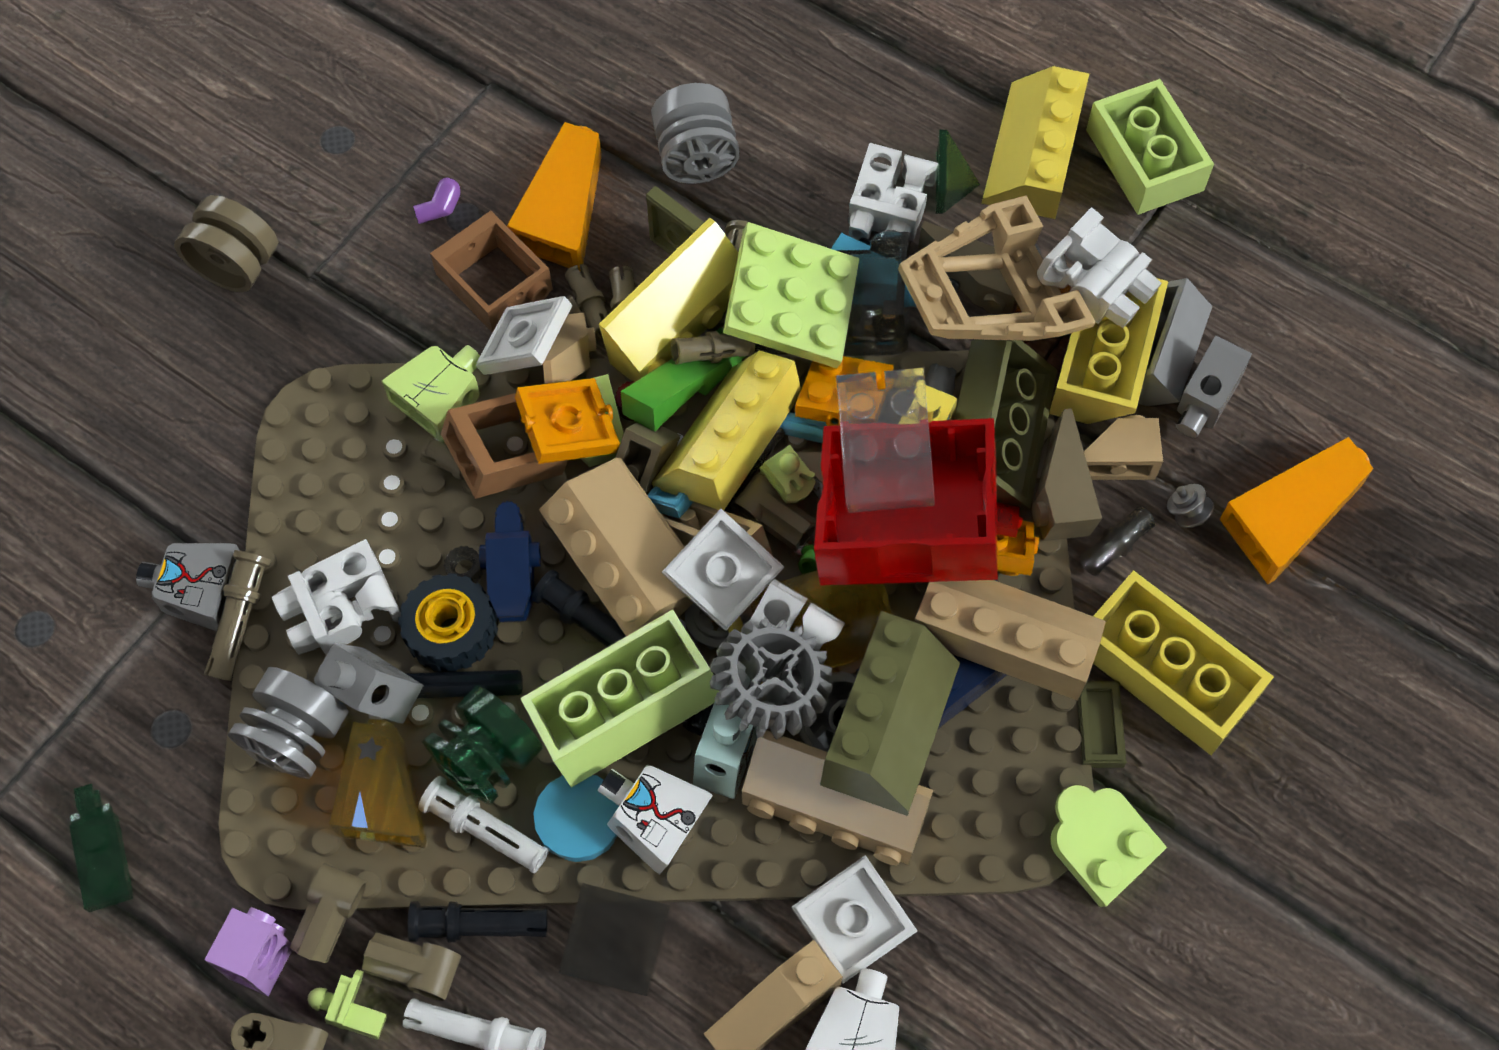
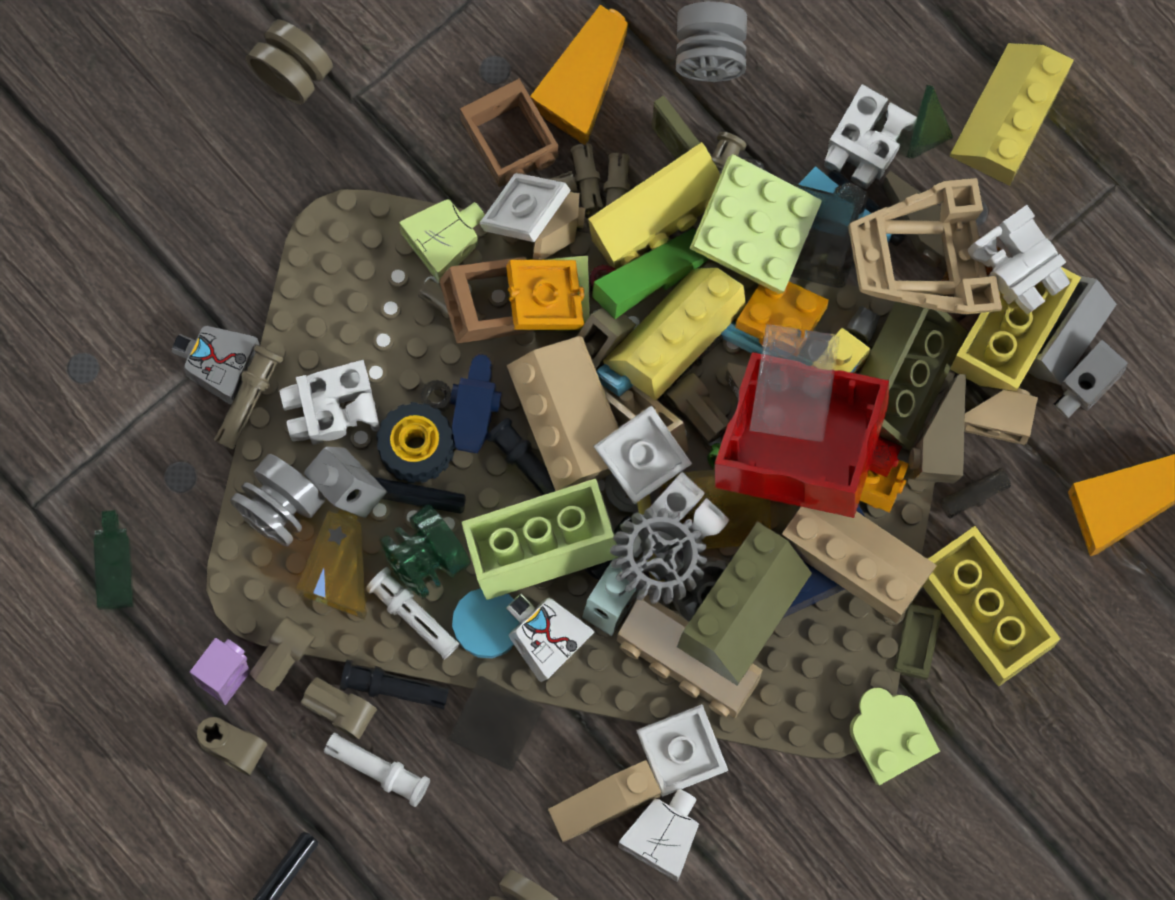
camera: 10 degrees right, 10 degrees up
(343, 1011) = (281, 731): yellowish green piece -> none
(442, 202) = (479, 53): medium lavender arm -> none
(709, 347) = (673, 252): dark tan pin -> none
(789, 475) = (716, 382): yellowish green piece -> none
(1149, 146) = (1108, 140): yellowish green brick -> none
(1190, 505) = (1043, 477): flat silver wheel -> none

